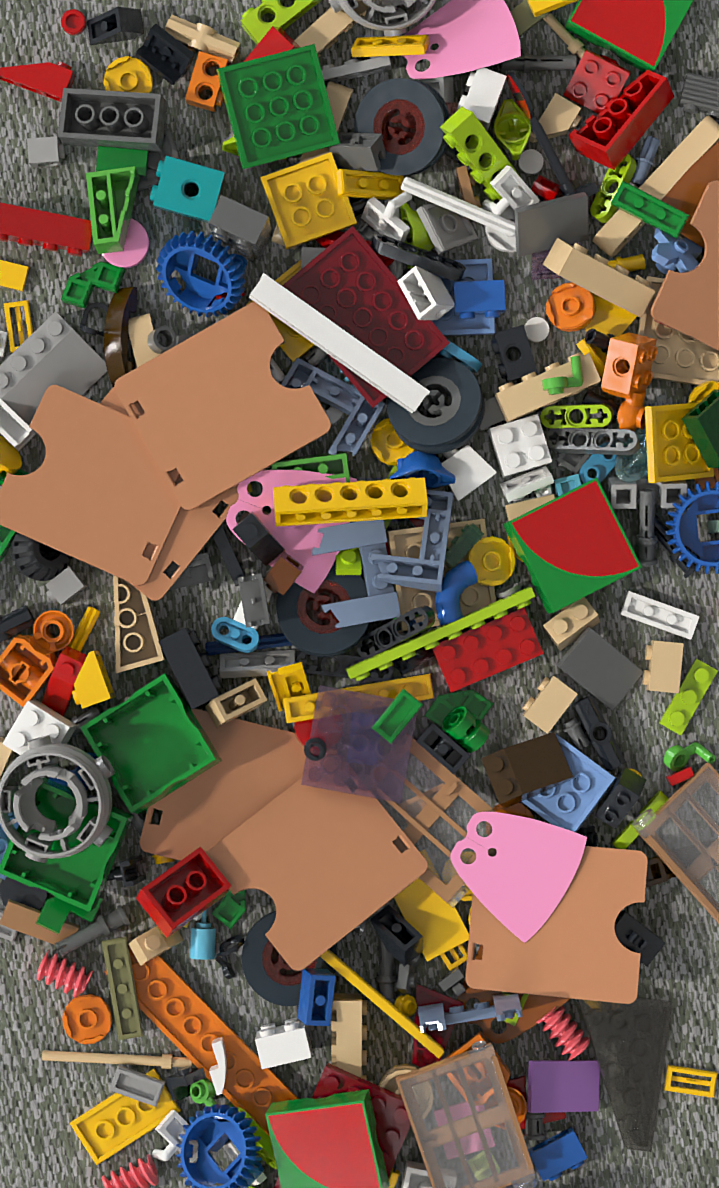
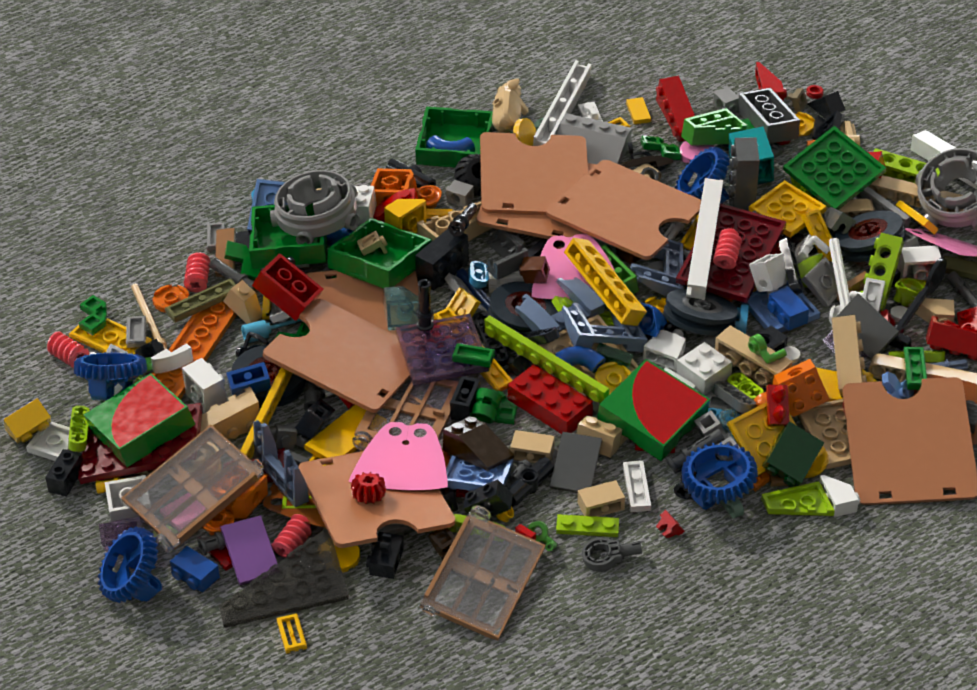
camera: 65 degrees right, 45 degrees down
(75, 1118) = (97, 314): none -> green tile
(86, 57) = (798, 99): none -> dark tan tile
(127, 744) = (371, 242): none -> tan bracket
(164, 627) = (462, 220): none -> black pin
(236, 703) = (440, 287): tan brick -> none
(258, 539) = (552, 245): black slope -> none
(259, 753) = (400, 307): none -> clear light blue slope
(376, 329) = (727, 249): none -> coral piece
(554, 937) = (368, 487): none -> red gear
(570, 307) = (824, 363): orange tile -> none
(663, 416) = (777, 405): none -> red tile

